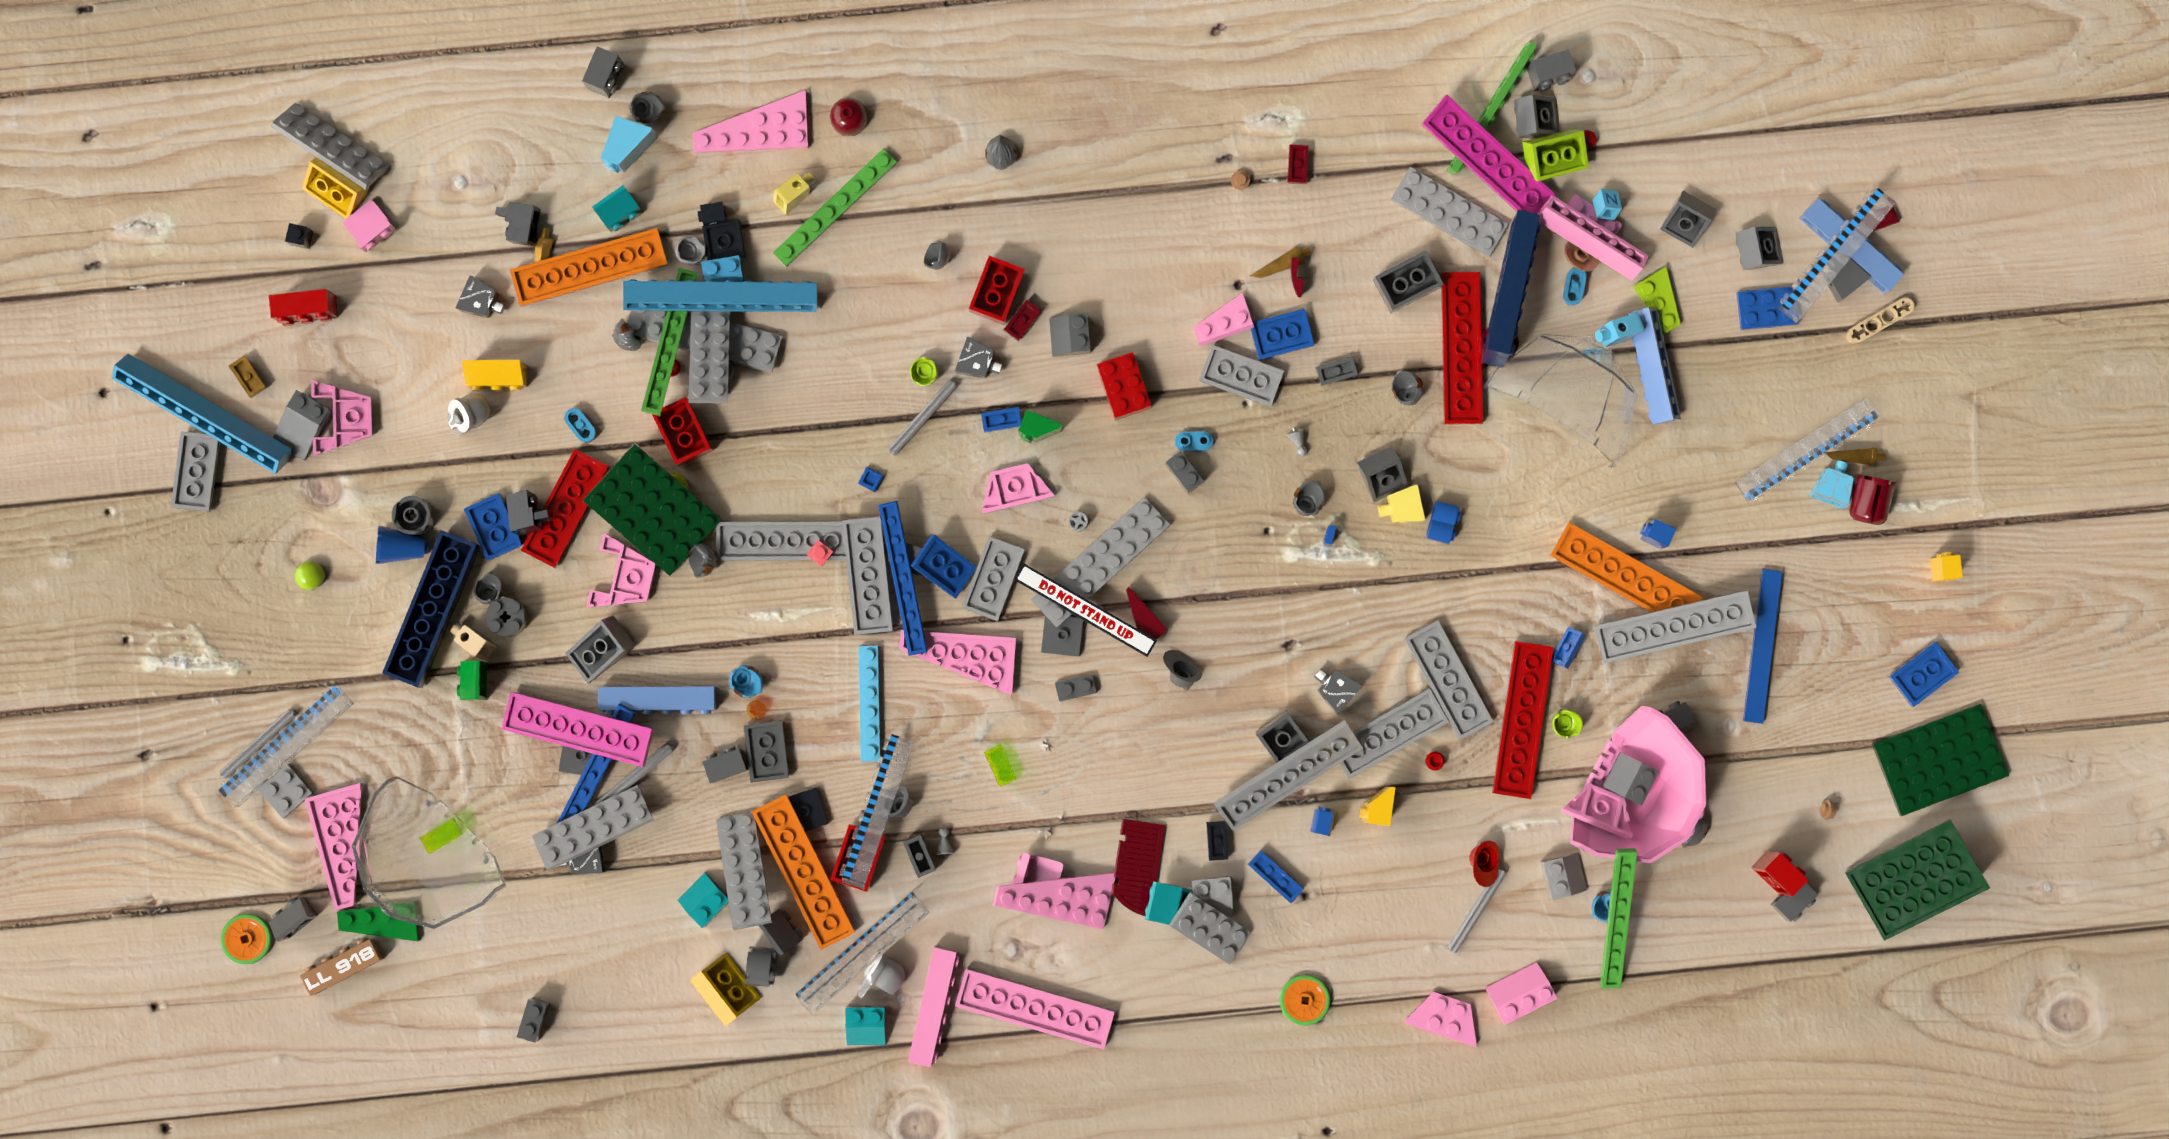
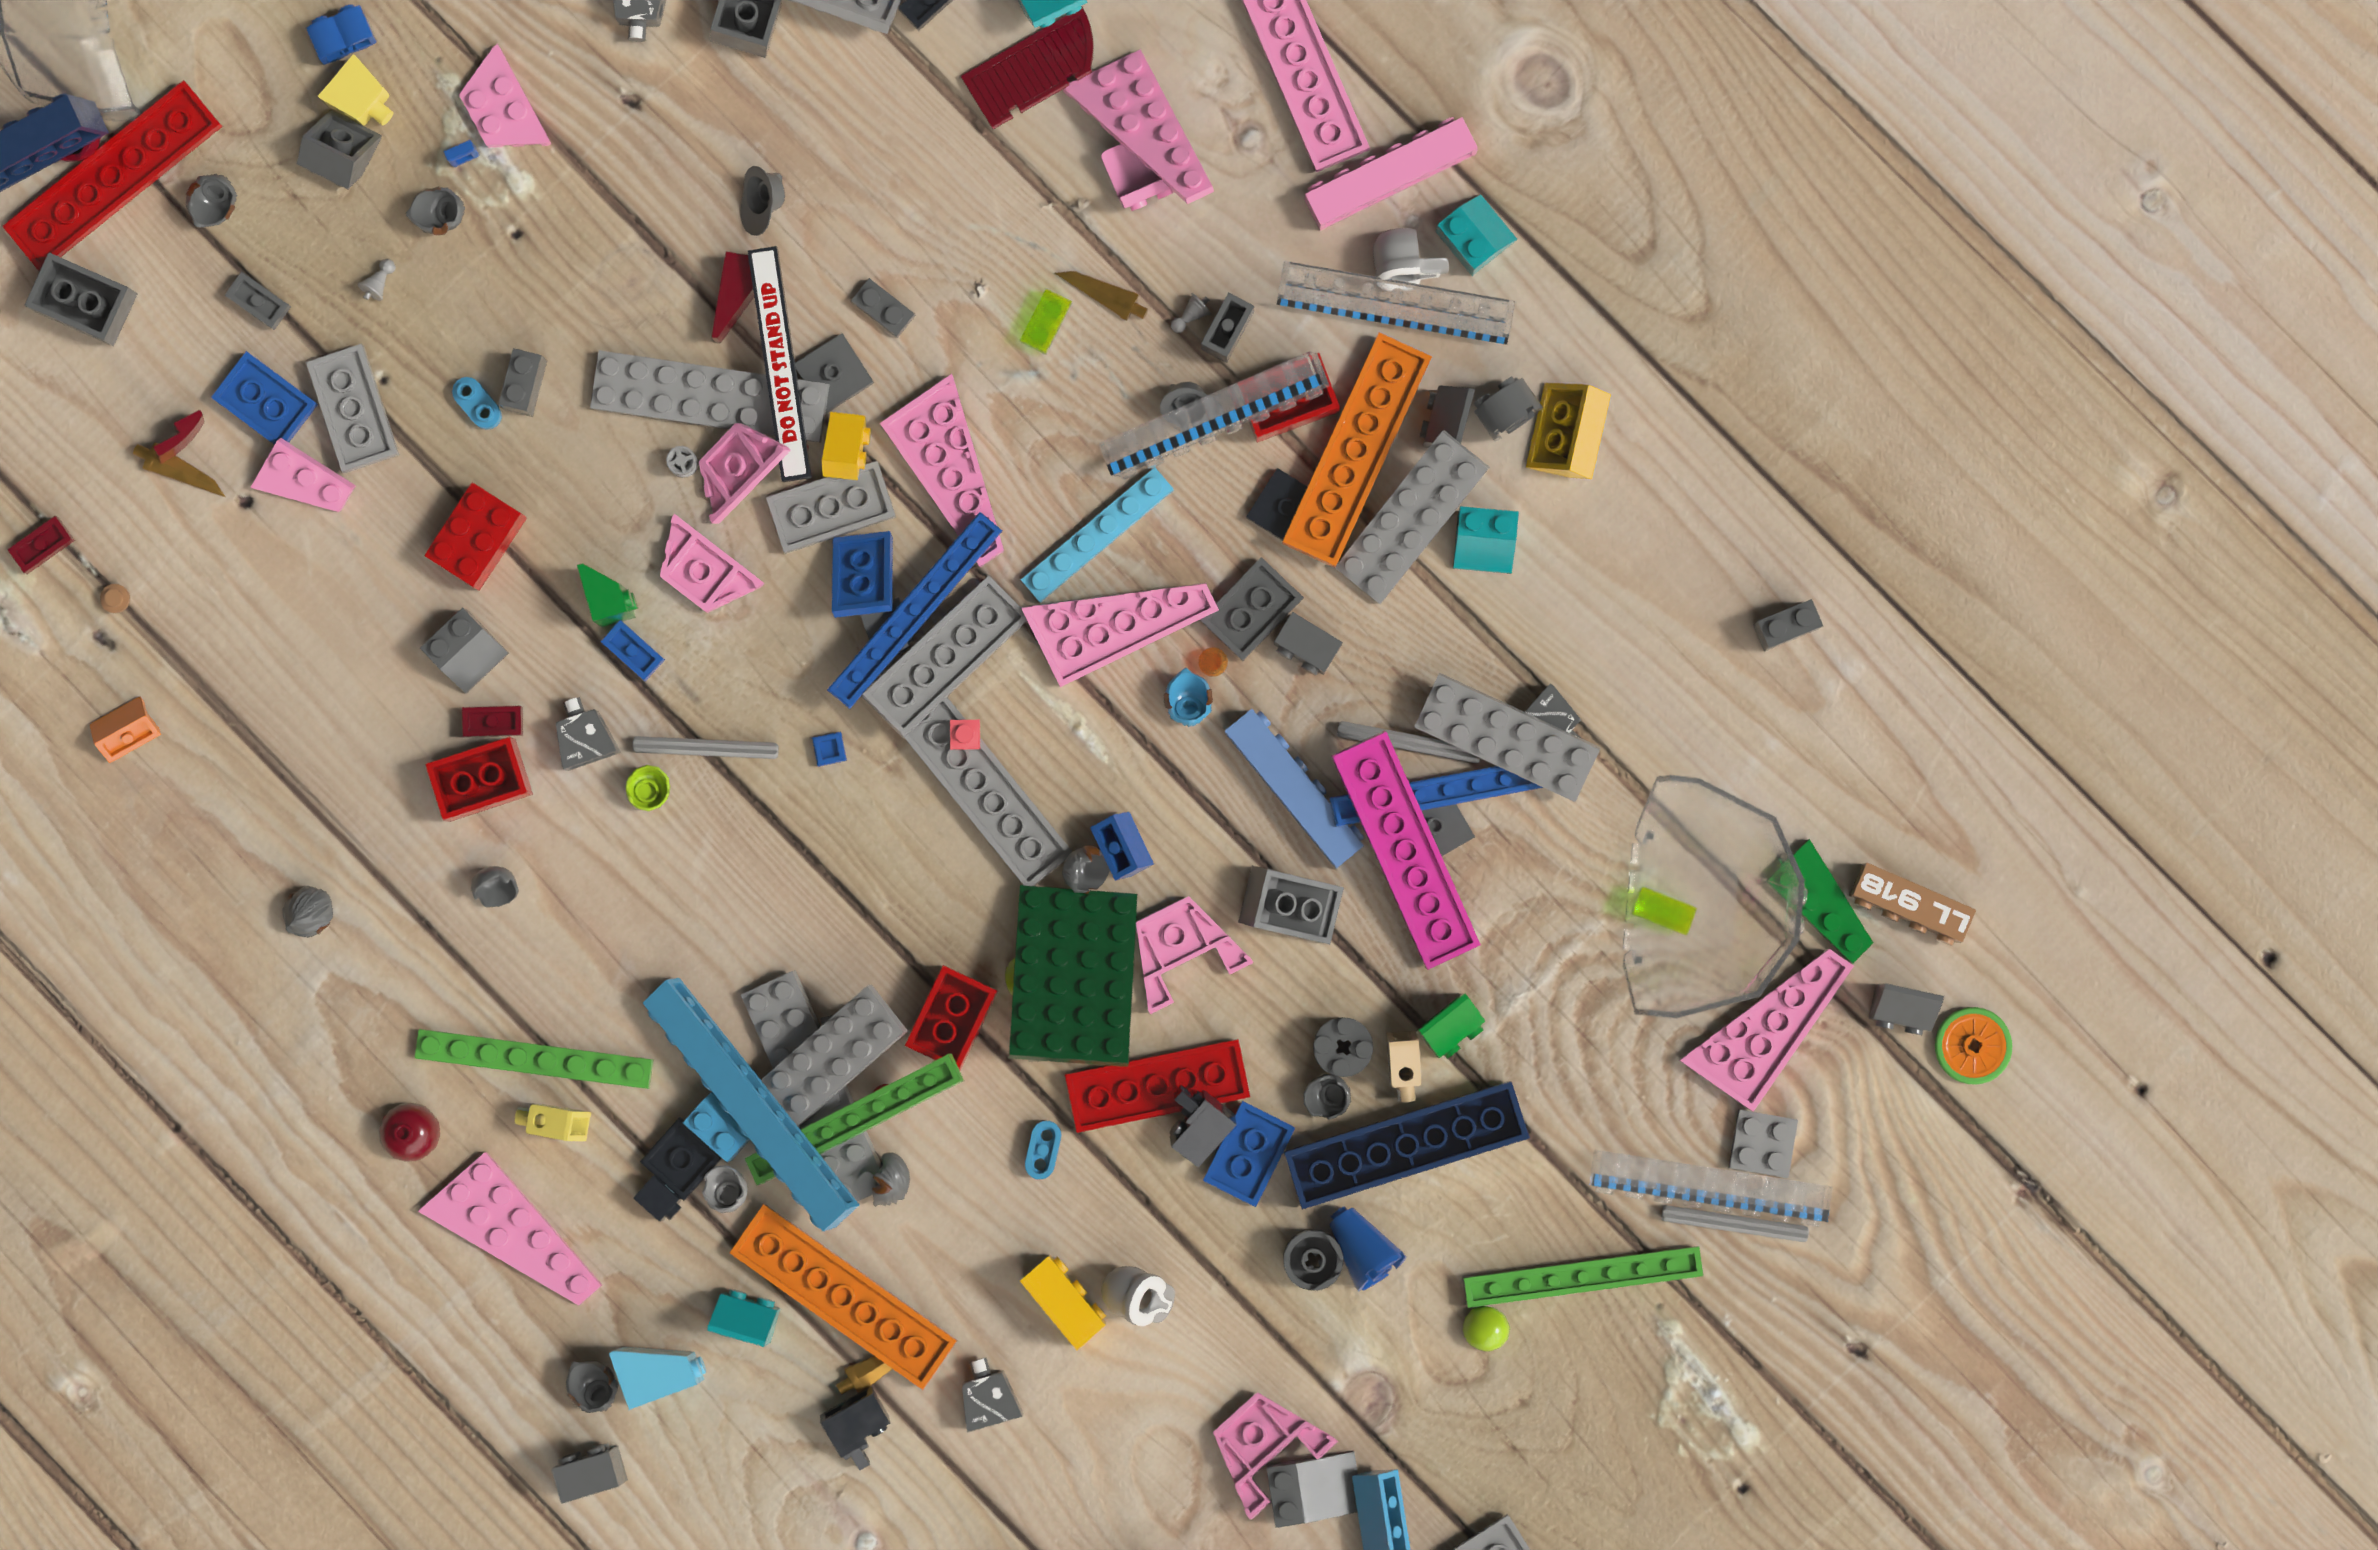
camera: 120 degrees left, 0 degrees up
(294, 645) = (1583, 1276): none -> bright green plate
(698, 587) = (1122, 845): none -> blue brick
(818, 662) = (1099, 630): none -> bright pink wing
(983, 811) = (1112, 297): none -> pearl gold bar
(1017, 609) = (844, 446): none -> yellow brick
(1051, 547) = (737, 466): none -> bright pink wing
(1169, 132) = (123, 730): none -> orange panel
(1339, 575) = (501, 106): none -> bright pink wing

